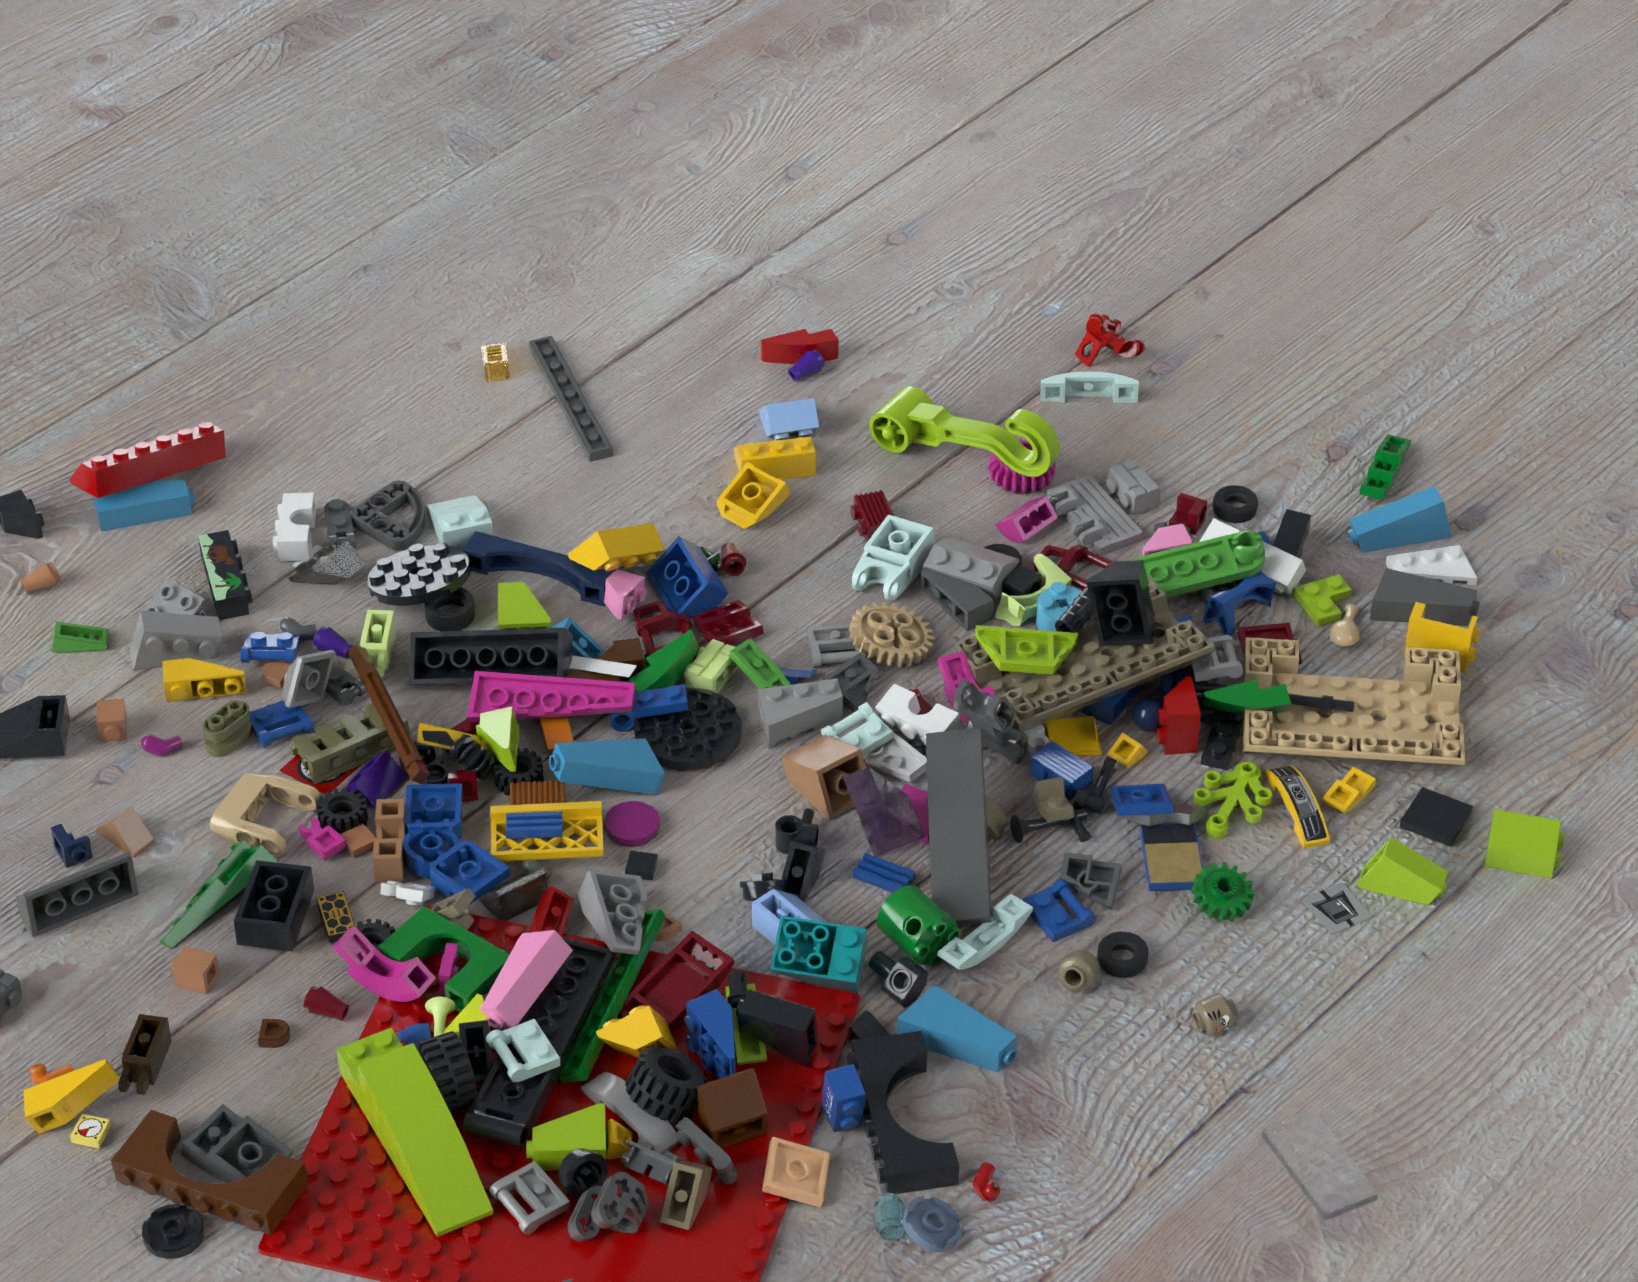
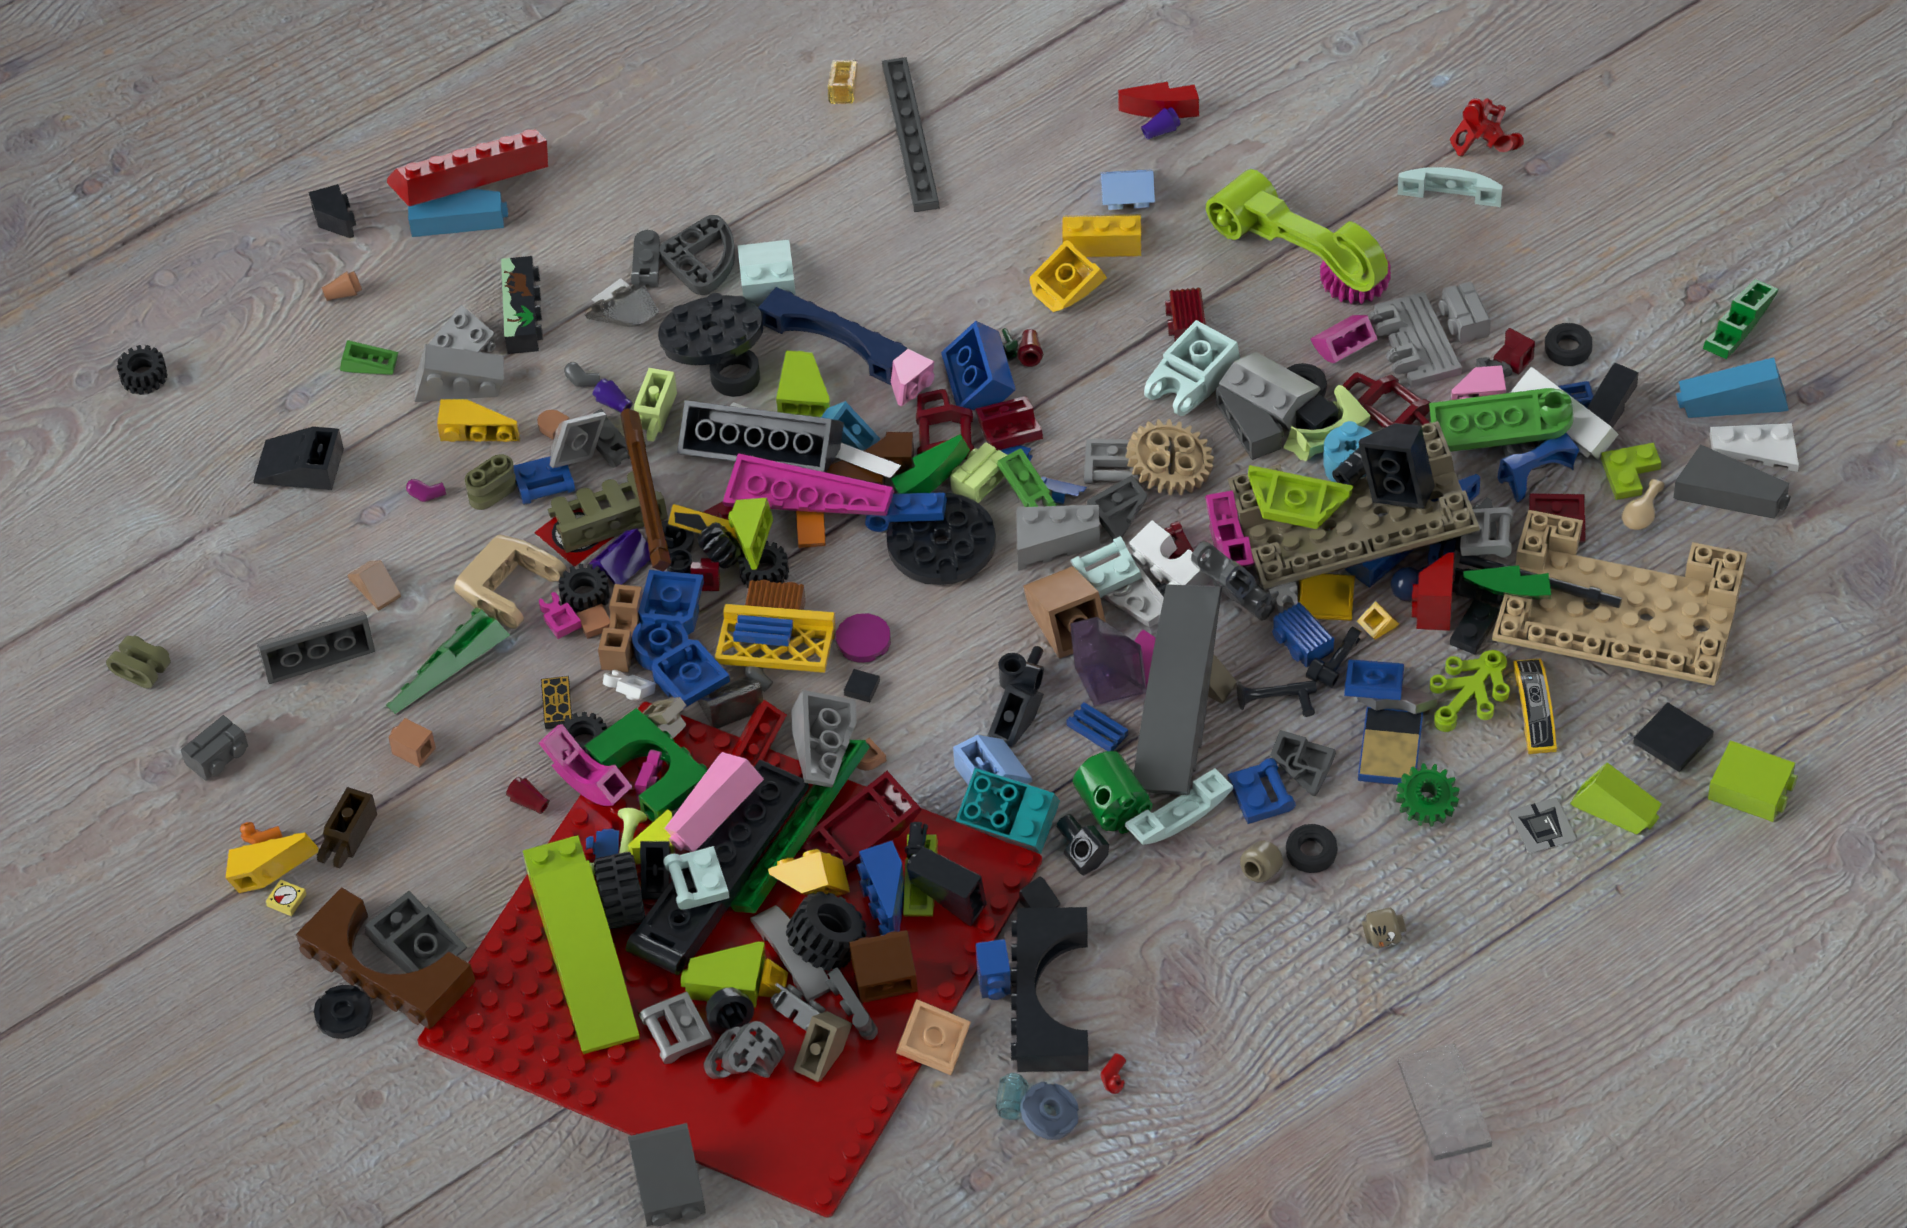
camera: 15 degrees right, 10 degrees up
(70, 849) = (319, 597): dark blue bracket -> none
(112, 720) = (382, 457): nougat brick -> none
(270, 647) = (550, 394): blue plate -> none
(273, 1033) = (473, 819): reddish brown tile -> none
(274, 905) = (497, 684): black brick -> none
(293, 532) = (596, 270): white arch -> none
(608, 764) = (851, 572): dark azure slope -> none
(619, 548) = (914, 327): yellow slope -> none
(760, 885) = (970, 726): black piece -> none
(958, 1031) = (1124, 909): dark azure slope -> none
(1051, 801) = (1283, 670): dark tan slope -> none
(1350, 791) = (1592, 697): yellow slope -> none
(1439, 635) = (1728, 535): yellow panel -> none

